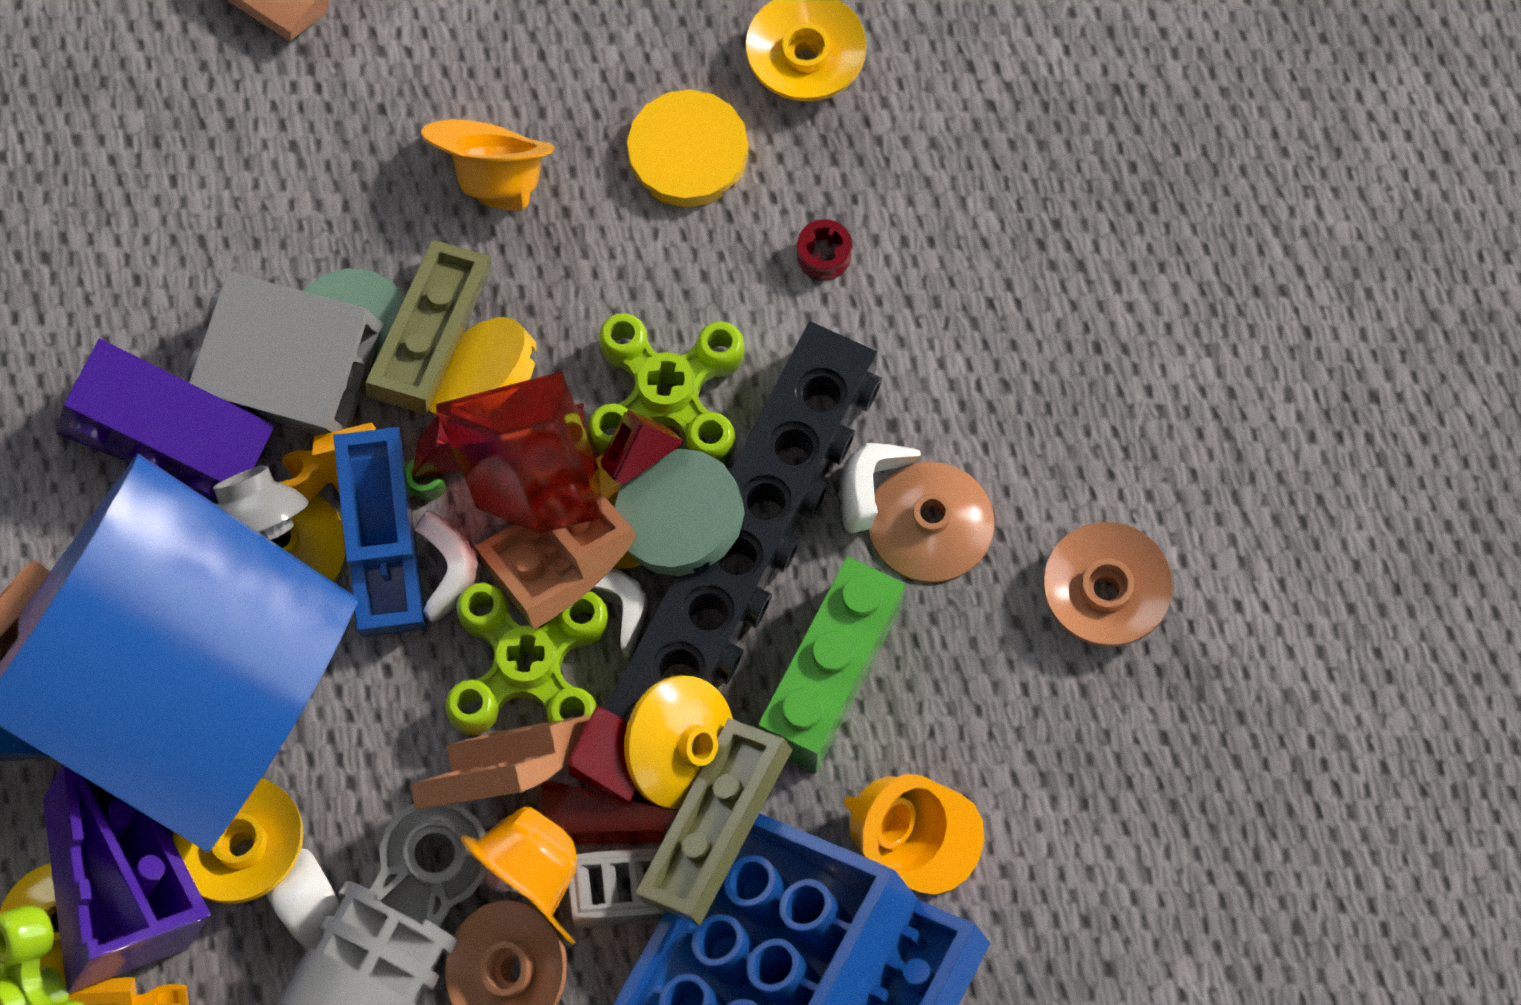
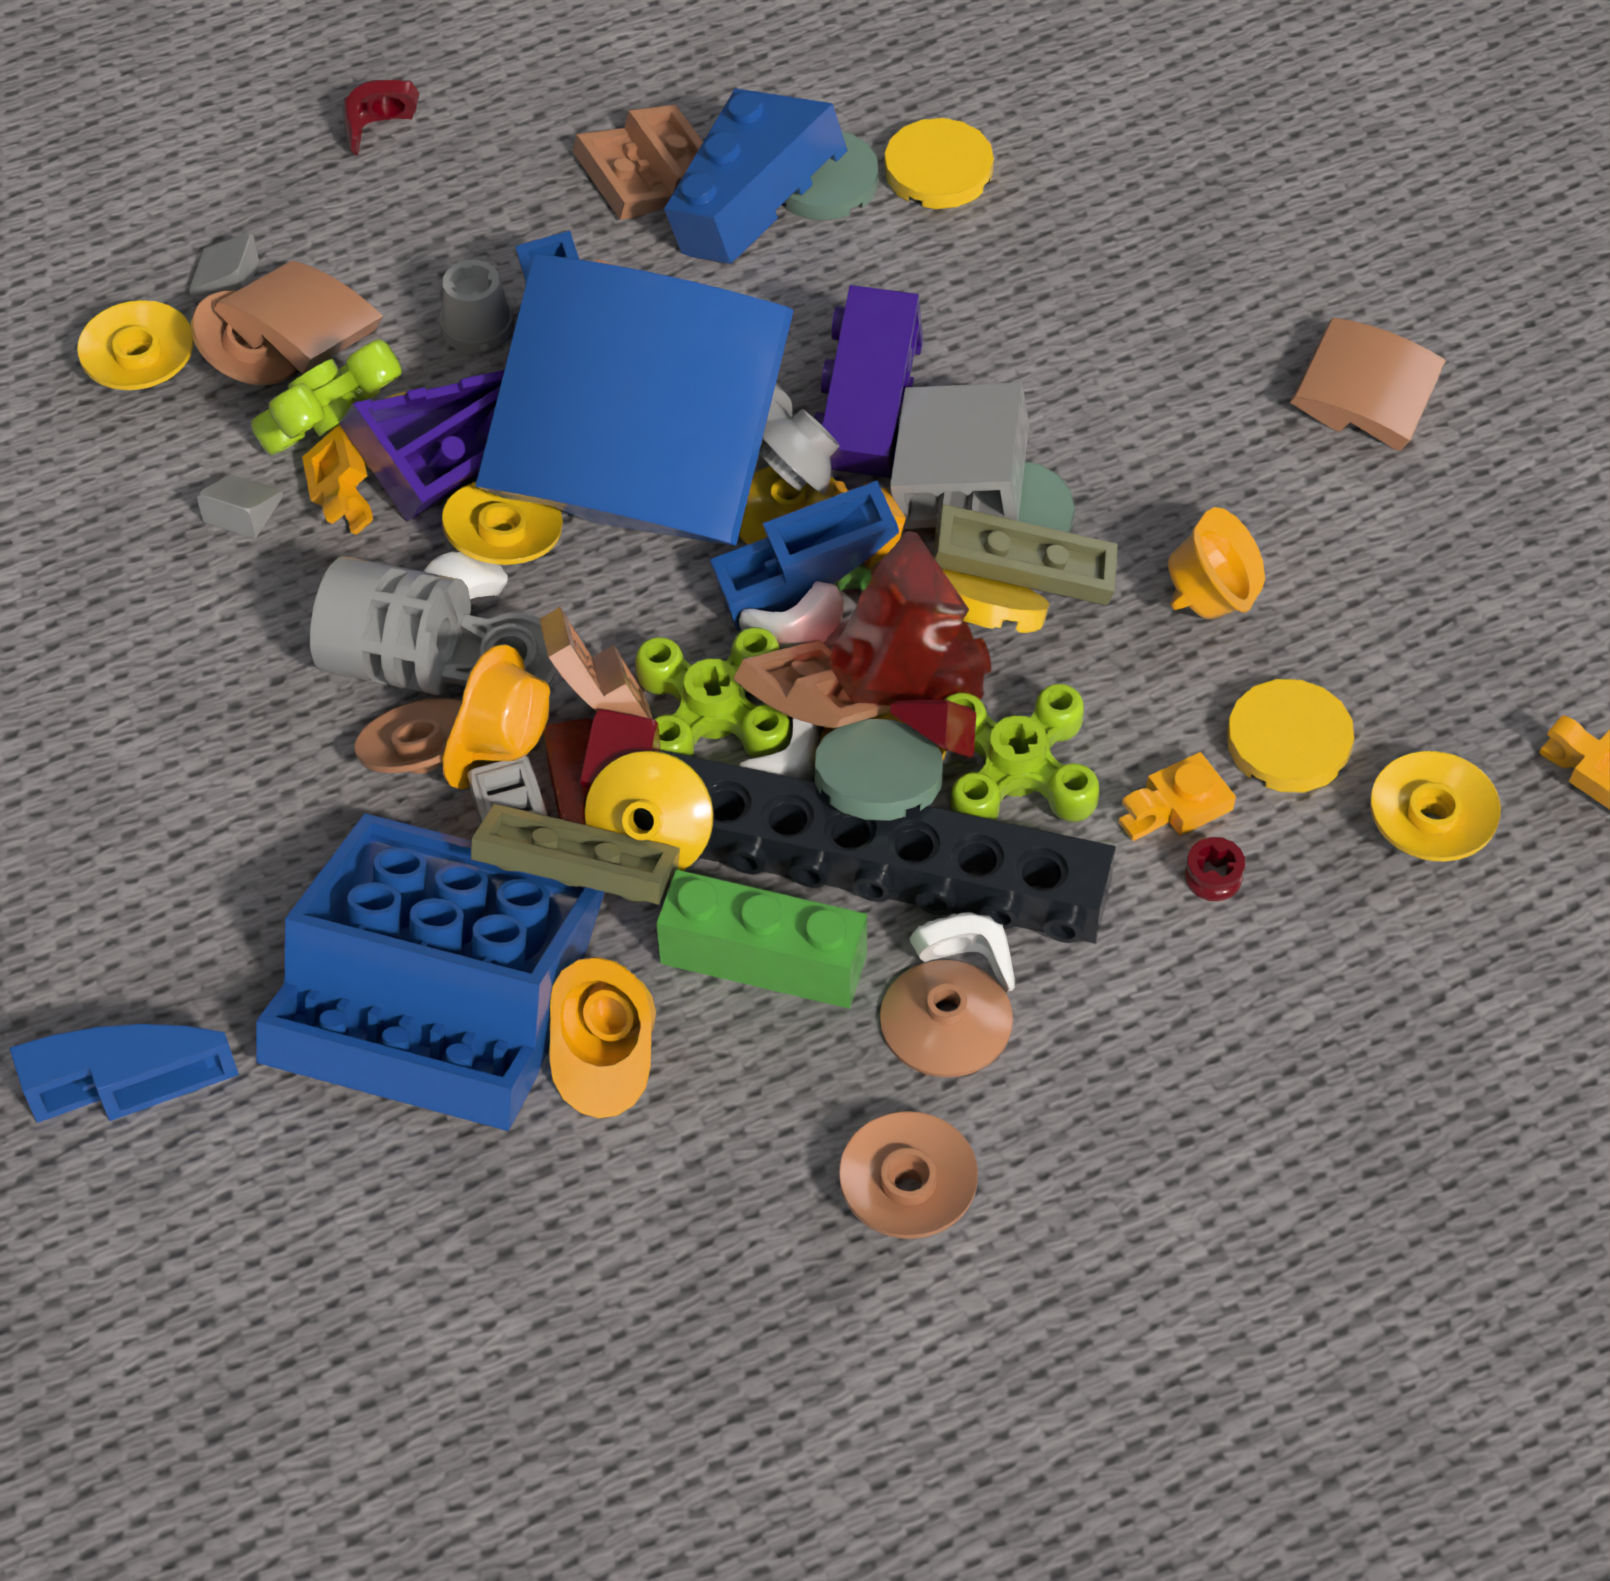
camera: 80 degrees right, 15 degrees down
(737, 258) = (1181, 795): none -> light orange plate

